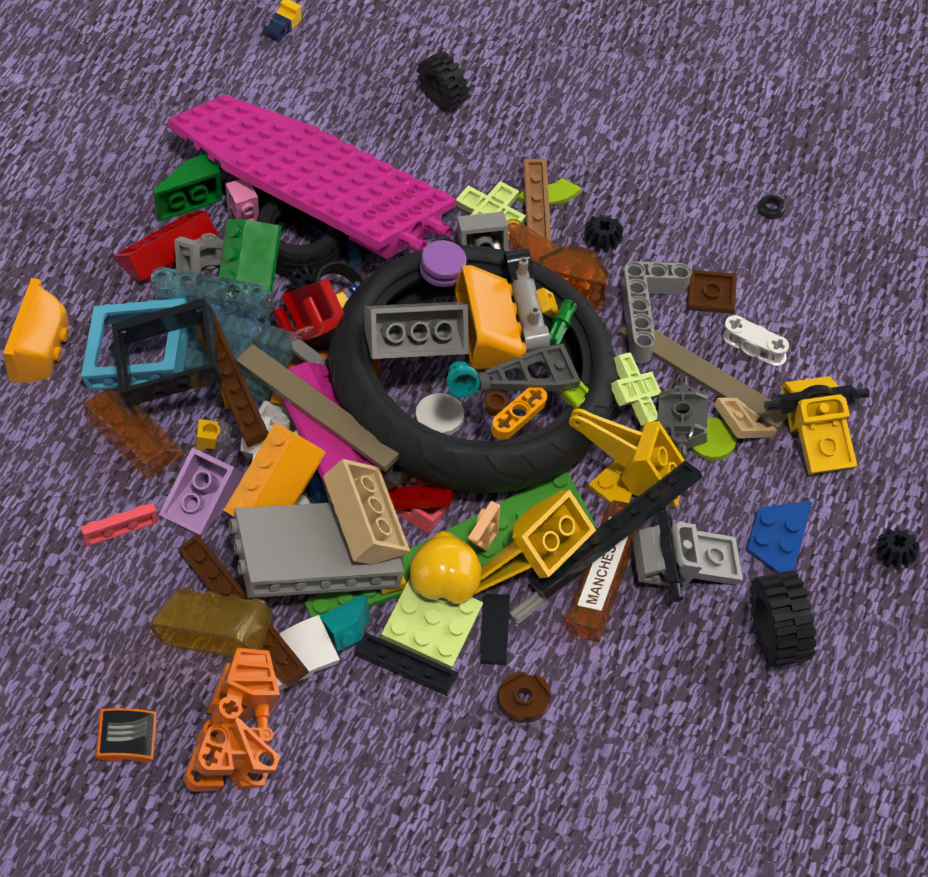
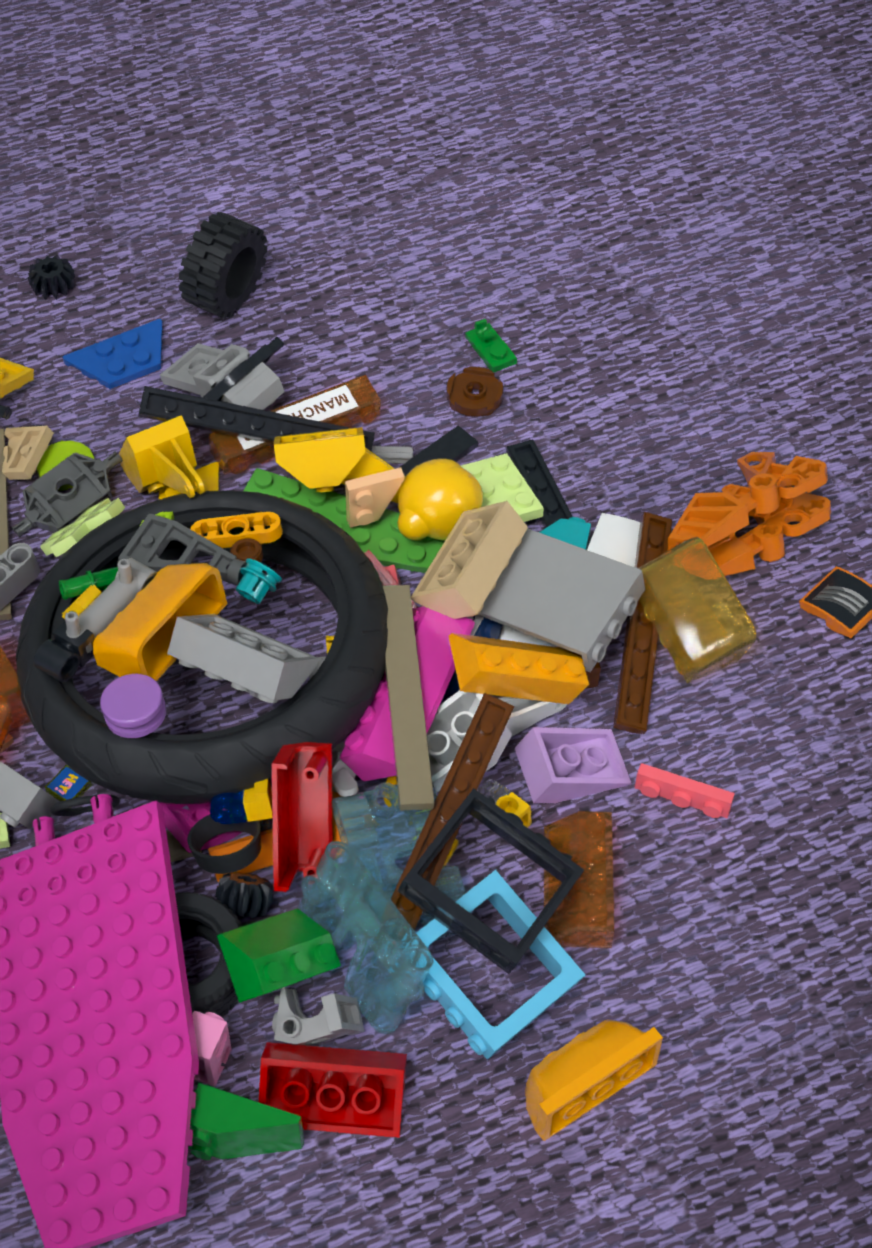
camera: 135 degrees left, 0 degrees up
(554, 746) = (490, 346): none -> green plate

